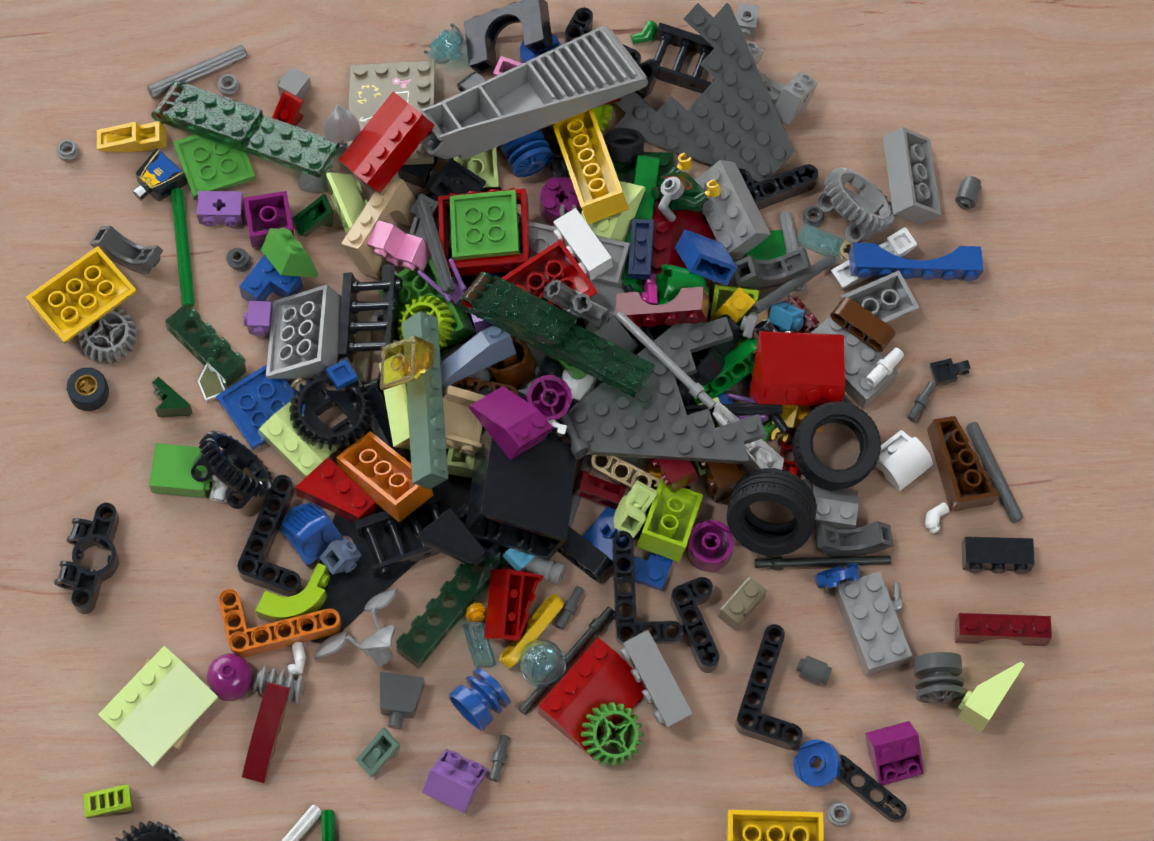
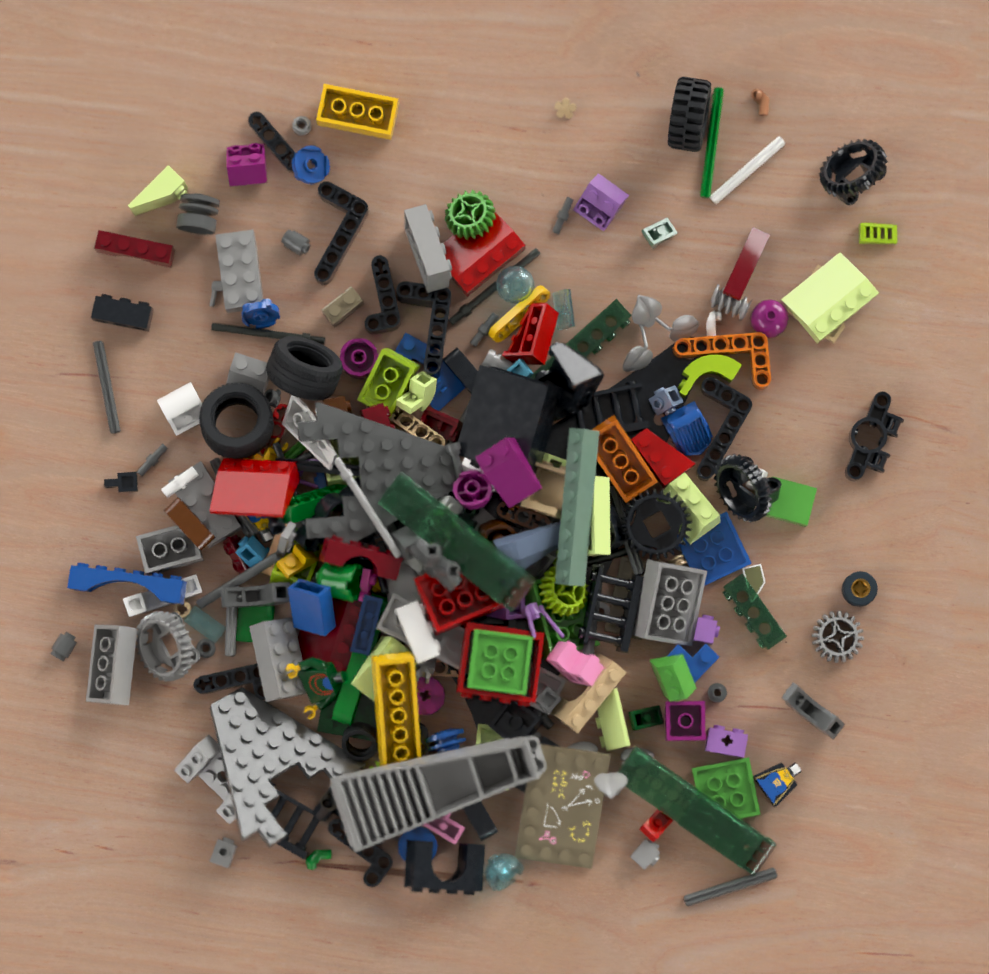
camera: 165 degrees left, 15 degrees up
(63, 146) = (859, 820): light grey plate -> none
(80, 295) = (856, 670): yellow slope -> none
(132, 137) = (797, 826): yellow slope -> none
(172, 402) = (787, 562): dark green slope -> none
(182, 247) = (763, 711): green axle -> none
(228, 79) = (709, 872): light grey plate -> none
(341, 374) = (643, 548): blue plate -> none
(386, 142) = (574, 756): red slope -> none
(399, 697) = (634, 276): dark grey torso -> none
(405, 361) = (590, 529): clear yellow slope -> none
(435, 247) = (545, 653): dark grey axle -> none
(476, 613) = (562, 336): light orange plate -> none
(483, 695) = (572, 259): blue wheel -> none
(671, 189) = (327, 667): light grey plate -> none
(854, 541) = (247, 345): dark grey arch -> none
(933, 517) = (167, 356): white arm -> none
(958, 466) = (135, 387): reddish brown wedge -> none

